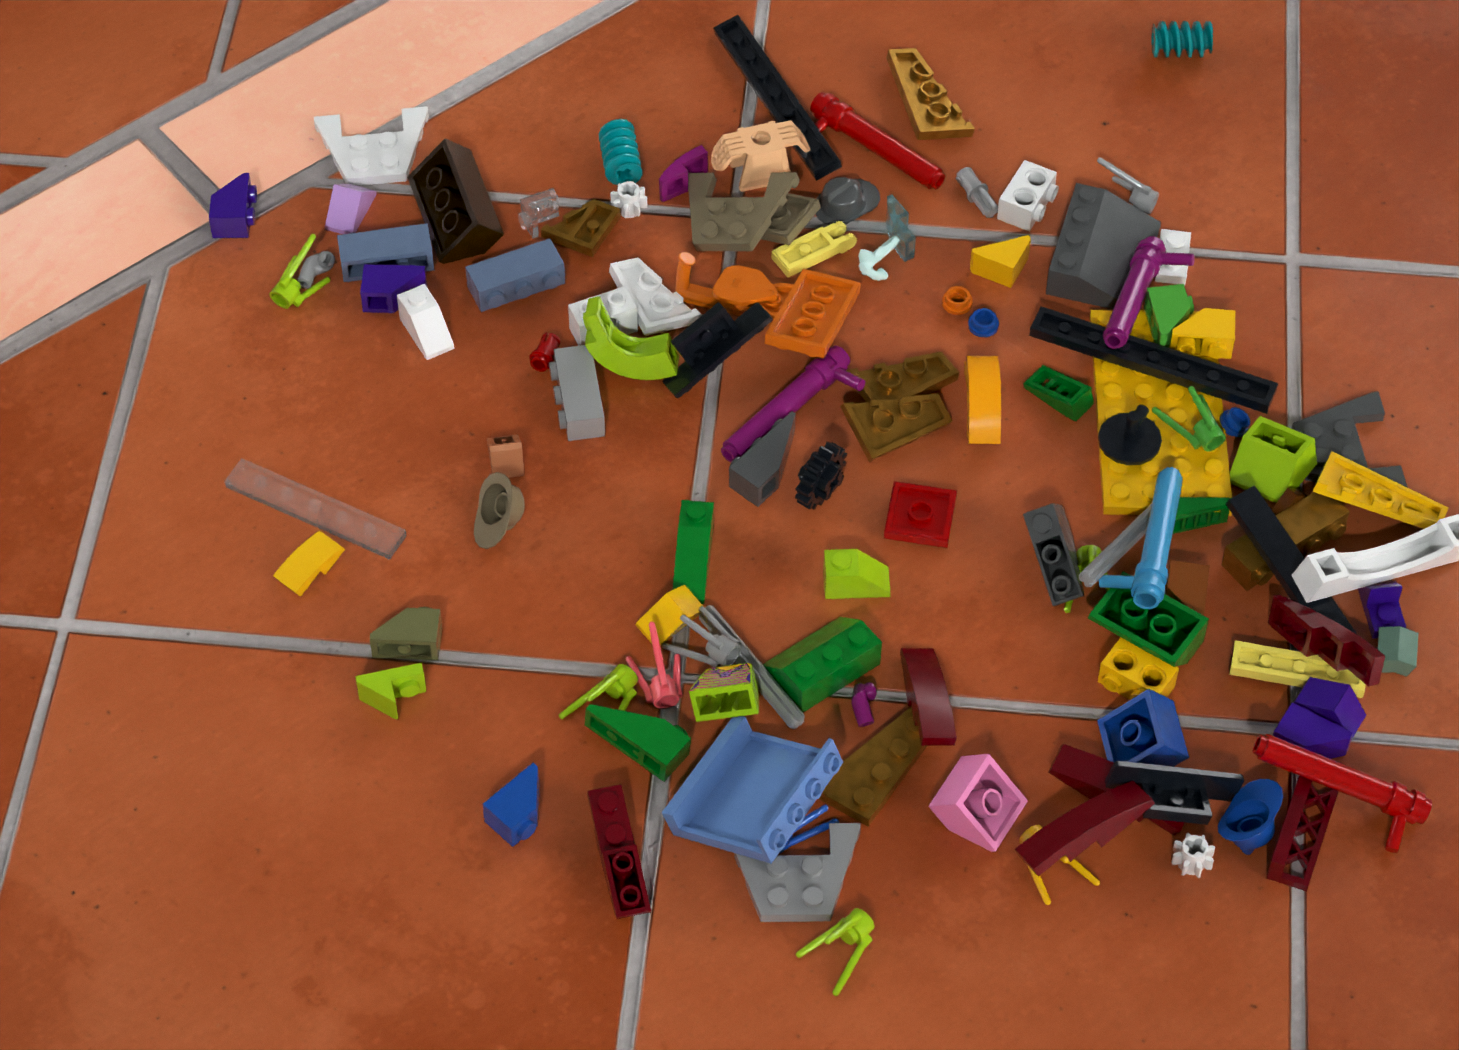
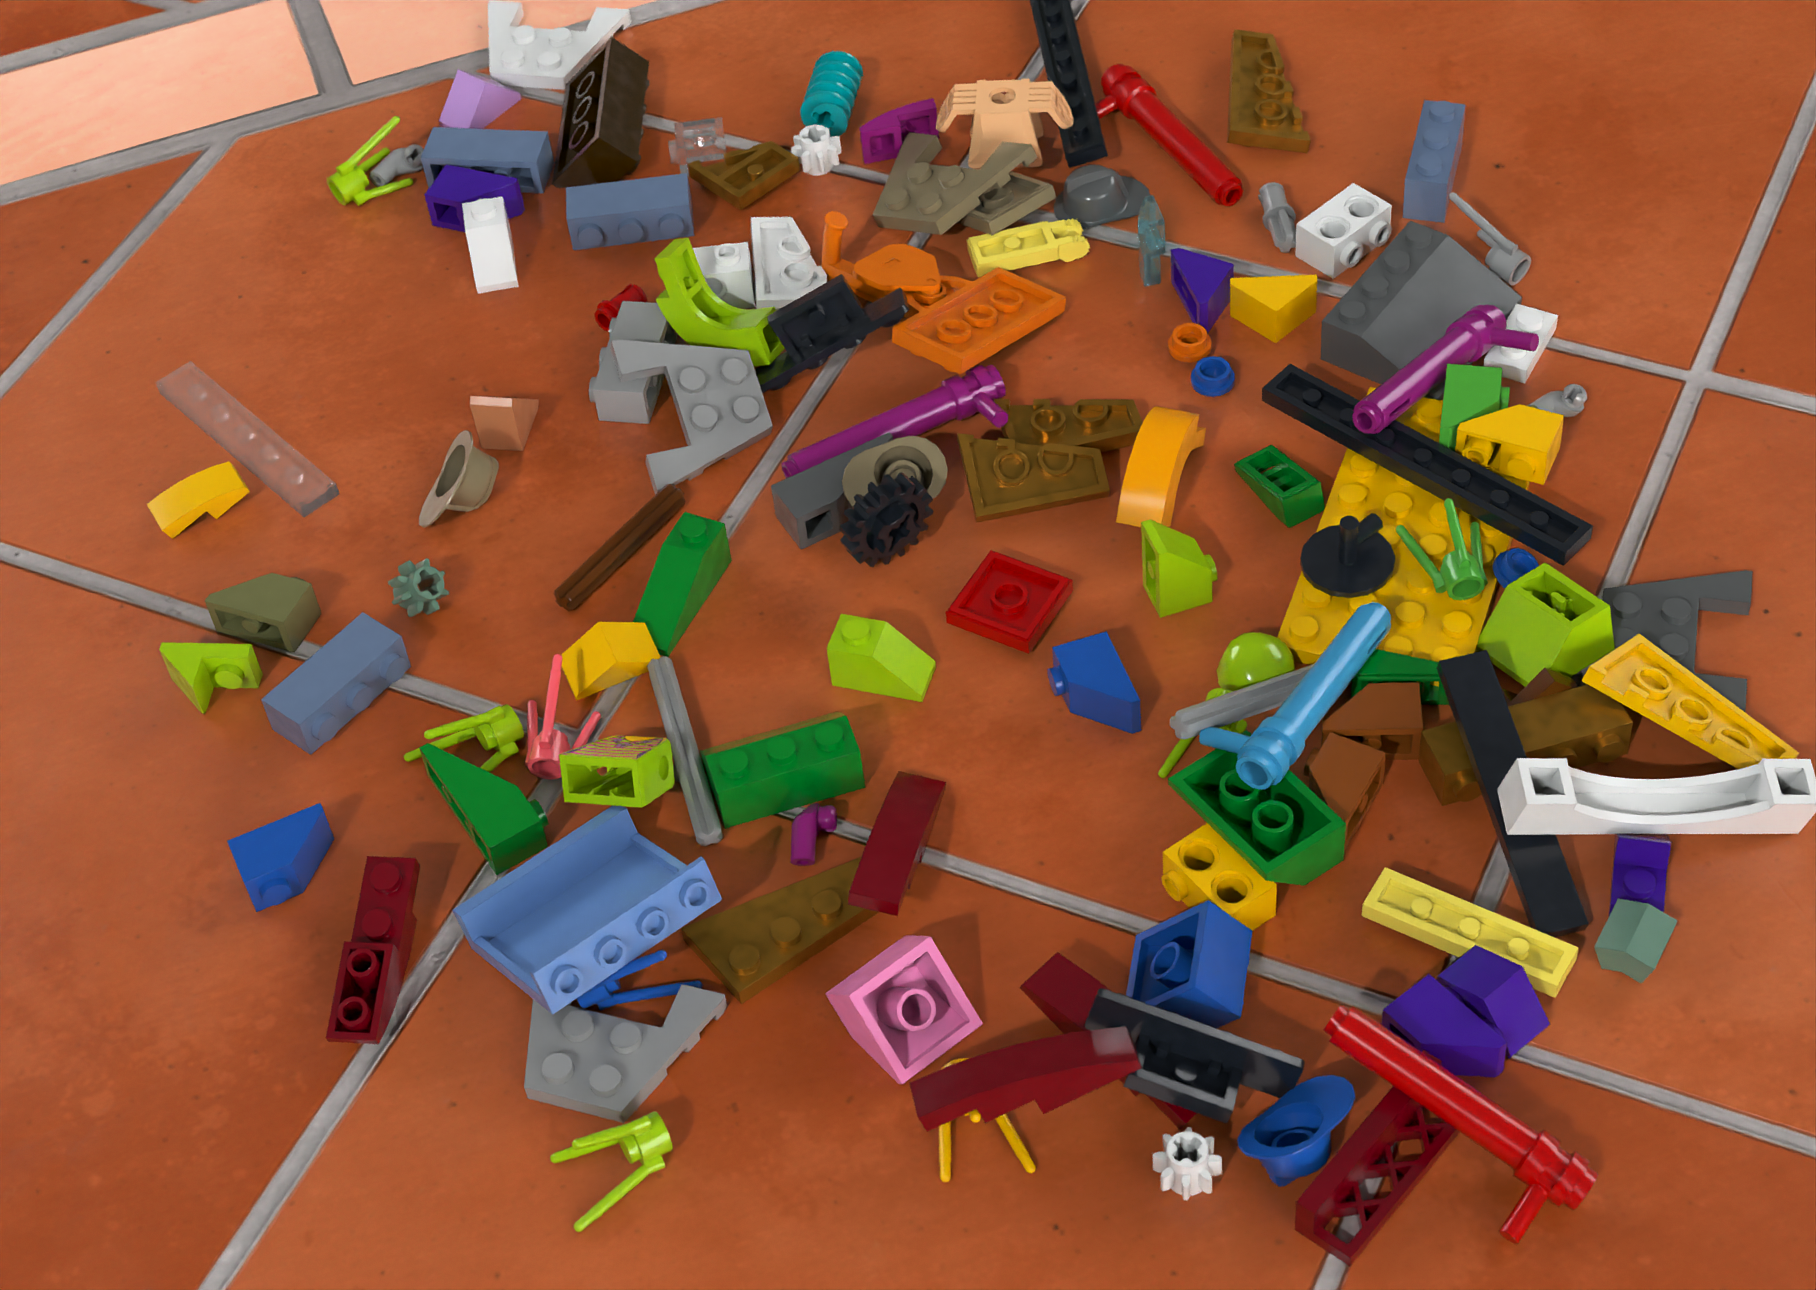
camera: 25 degrees right, 5 degrees down
(231, 208) = (338, 82): dark purple slope -> none
(490, 676) = (336, 683): none -> sand blue brick
(512, 594) = (407, 592): none -> sand green gear
(634, 533) = (619, 547): none -> reddish brown axle
(653, 411) = (713, 397): none -> light grey wing
(722, 649) = (644, 713): light grey plant -> none
(806, 437) = (907, 454): none -> dark tan piece
(869, 259) = (1093, 270): light aqua piece -> none
(946, 255) = (1201, 285): none -> dark purple slope
(1004, 559) = (1095, 682): none -> blue slope
(1022, 470) = (1175, 569): none -> lime slope
(1055, 552) = (1172, 677): dark grey slope -> none
(1067, 130) = (1434, 161): none -> sand blue brick
(1097, 524) = (1253, 659): none -> lime hair
(1182, 38) = (1643, 76): teal piece -> none
(1197, 542) = (1381, 717): none -> dark orange slope
(1215, 296) = (1565, 402): none -> light grey arm
(1324, 637) = (1515, 888): dark red slope -> none

